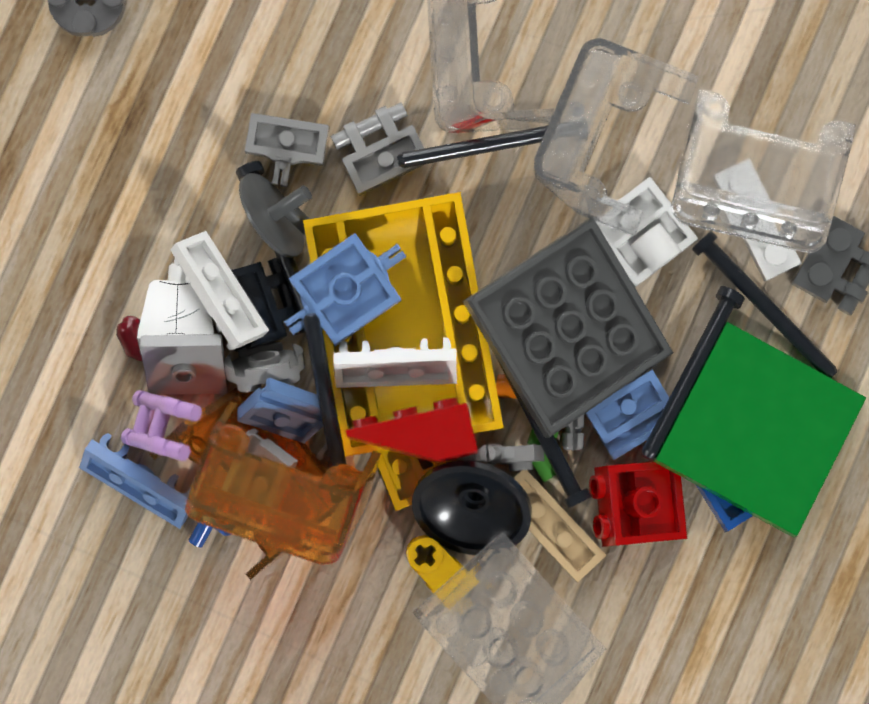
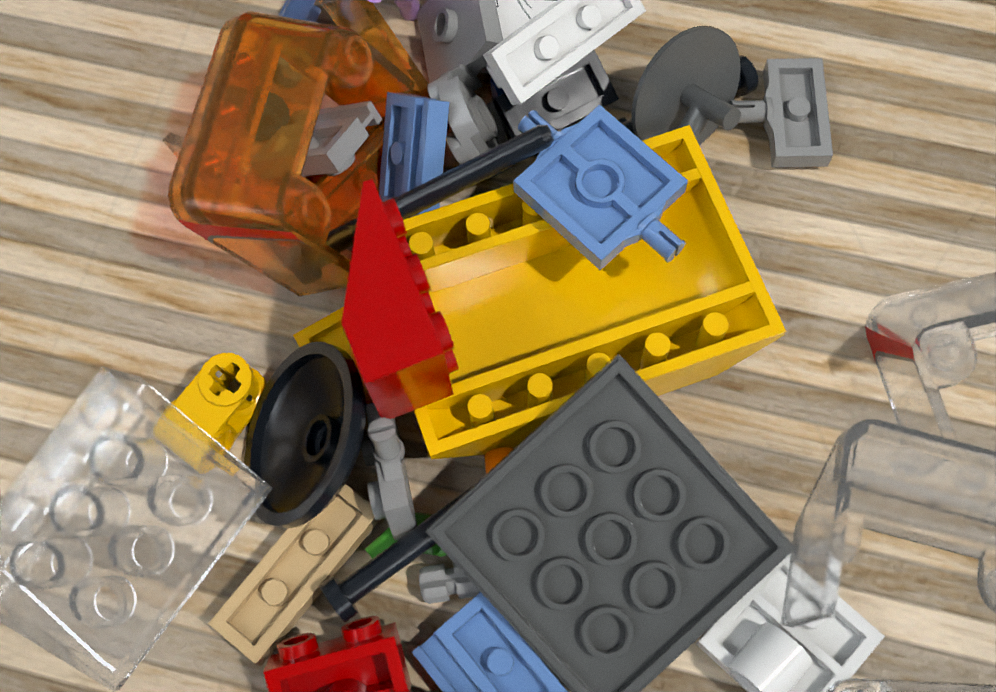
camera: 80 degrees right, 15 degrees down
(378, 162) = (806, 243): light grey plate -> none
(395, 366) = (498, 273): white plate -> none
(471, 147) = (848, 335): black bar -> none

